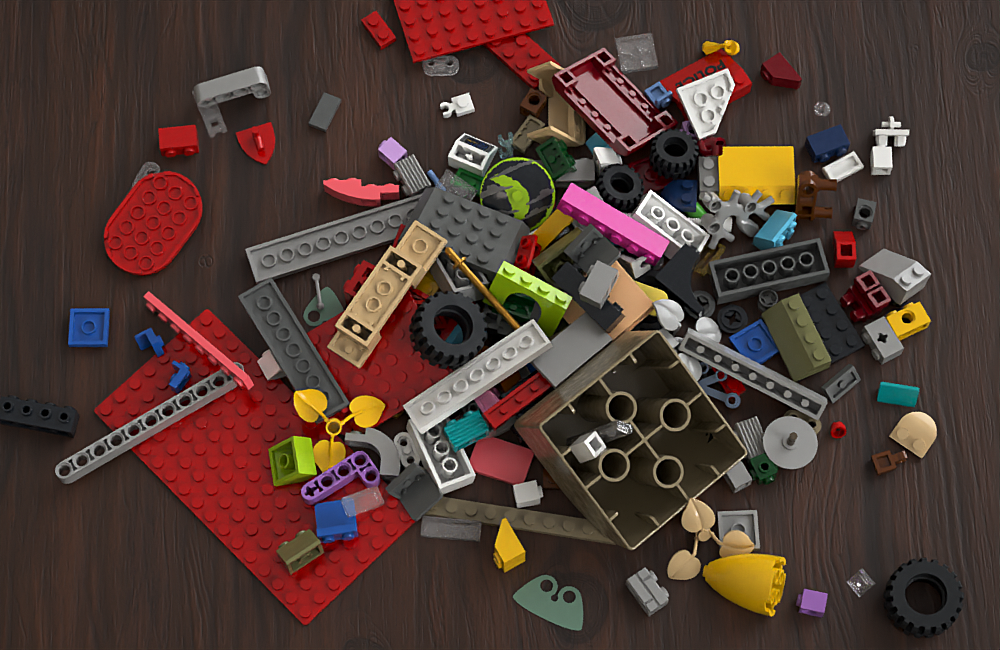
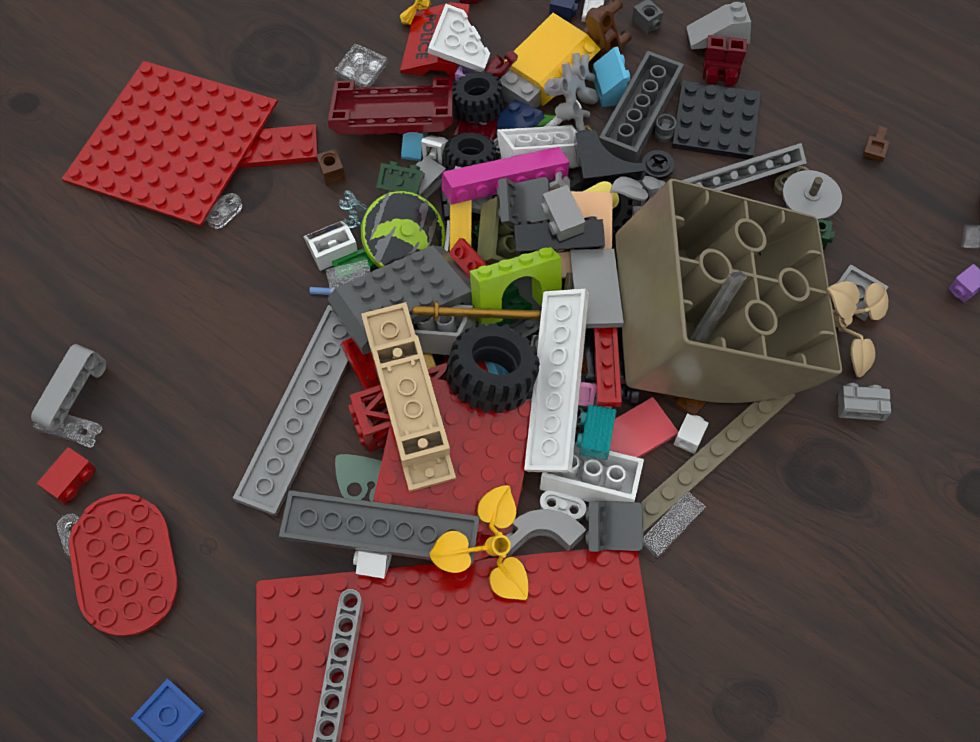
camera: 50 degrees left, 5 degrees down
(147, 338) = (236, 660): blue bracket -> none
(179, 379) = (308, 664): blue bracket -> none
(201, 343) = (295, 611): coral plate -> none
(258, 142) = (139, 409): red shield -> none
(292, 461) = (488, 618): lime slope -> none
(300, 550) = (590, 682): olive slope -> none
(316, 278) = (320, 459): light grey hinge -> none
(324, 112) = (170, 331): dark grey tile -> none
(334, 523) = (584, 623): blue bracket -> none
(338, 481) = (543, 590): medium lavender beam -> none
(354, 193) = (269, 362): coral slope -> none
(362, 501) = (584, 583): clear tile -> none
(378, 30) = (141, 233): red plate -> none
(391, 152) = (265, 304): lavender brick -> none
(411, 176) = (302, 305): light grey brick -> none
(460, 105) = (274, 222): white plate -> none
(508, 548) = (735, 485): yellow slope -> none
(520, 139) = (351, 182): dark tan plate -> none
(558, 612) = (824, 493): sand green piece -> none
(562, 119) = (361, 152): tan windscreen -> none
(587, 447) = (721, 324): white brick -> none
(658, 95) = (414, 76): medium blue bracket -> none
(748, 580) = (918, 312): yellow cylinder -> none
(754, 342) = (694, 160): blue plate -> none
(796, 338) = (720, 126): olive slope -> none
(838, 434) = (820, 159): red hinge -> none
(840, 383) = (781, 128): dark grey plate -> none
(844, 249) = (668, 45): red slope -> none
(882, 330) = (767, 76): light grey brick -> none
(897, 394) = (822, 99): teal slope -> none
(915, 313) = (765, 51): yellow brick -> none
(915, 432) = (867, 110): tan slope -> none

